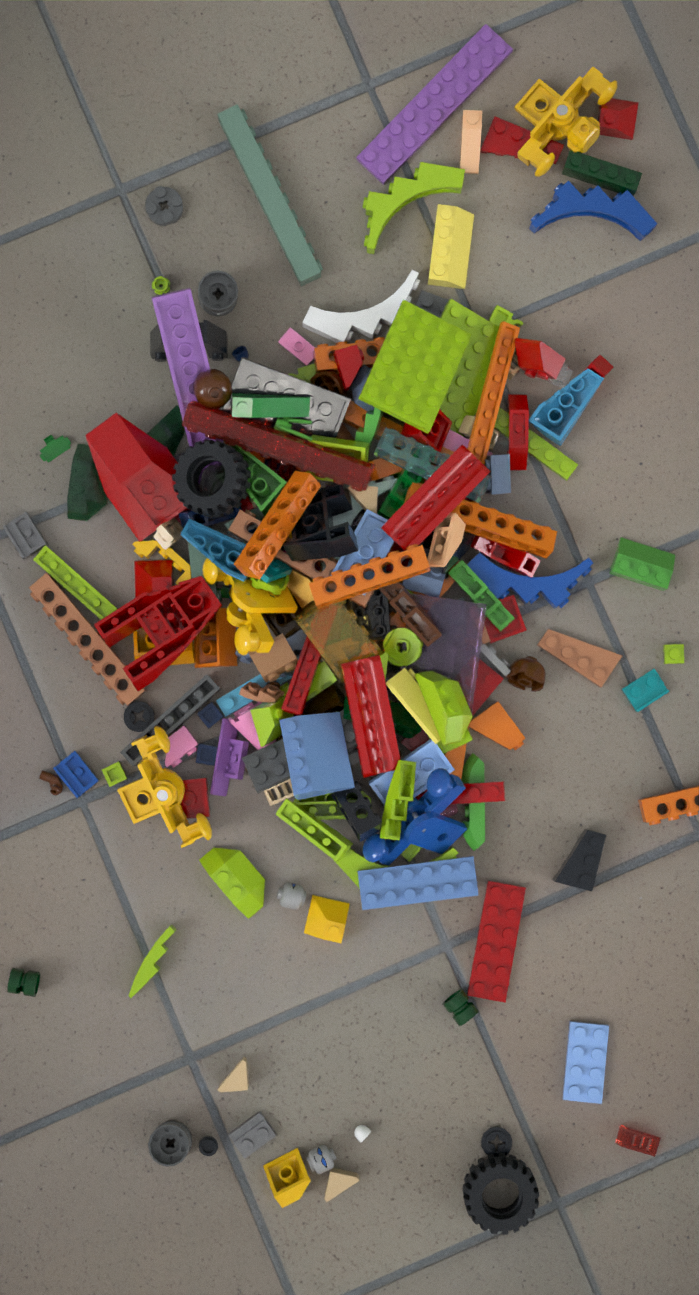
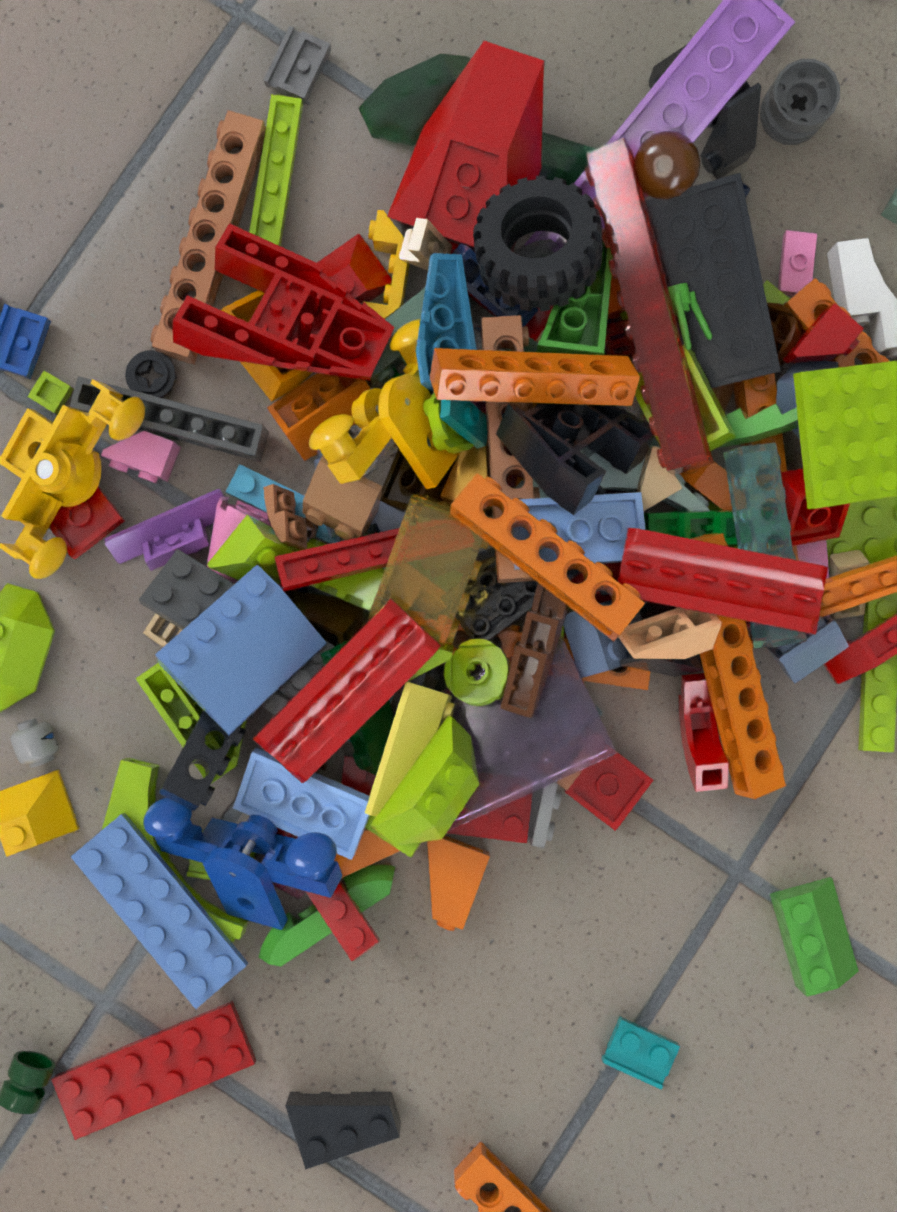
camera: 60 degrees right, 0 degrees up
(54, 447) = (442, 29): green piece -> none
(206, 754) = (156, 498): dark blue plate -> none
(210, 715) = (214, 469): dark blue plate -> none
(269, 406) = (696, 260): green slope -> none
(314, 830) = (137, 723): lime slope -> none
(396, 804) = (255, 806): lime slope -> none
(479, 593) = (625, 730): bright green slope -> none
(527, 588) = (697, 829): blue arch -> none
(527, 673) = (556, 872): reddish brown cylinder -> none
(582, 657) = (629, 937): nougat wing -> none
(673, 654) = (717, 1060): lime plate -> none

